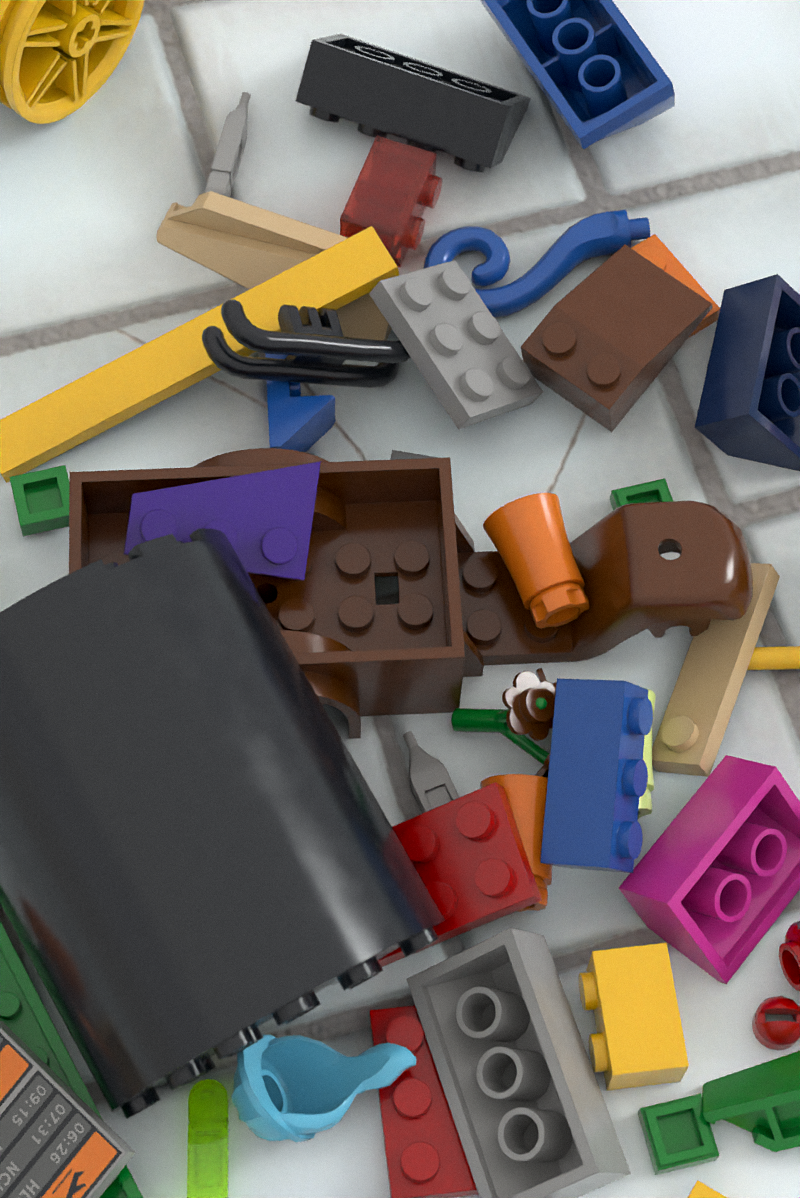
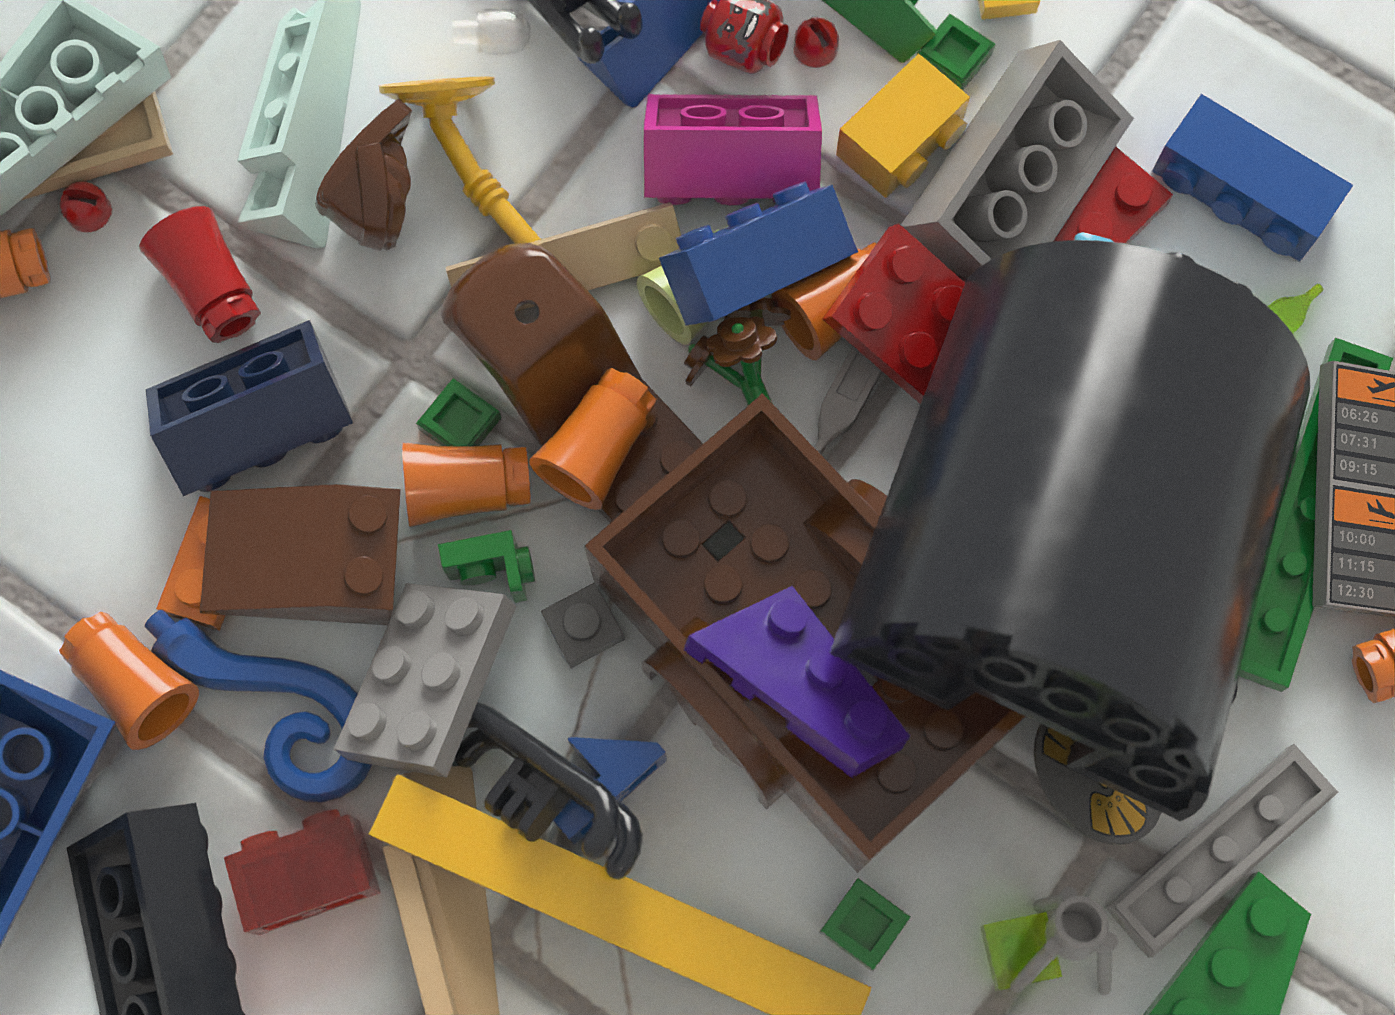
camera: 125 degrees left, 10 degrees up
(513, 454) = (480, 557): none -> green bracket
(594, 464) = (463, 480): none -> orange plant
(614, 181) = (128, 680): none -> orange plant

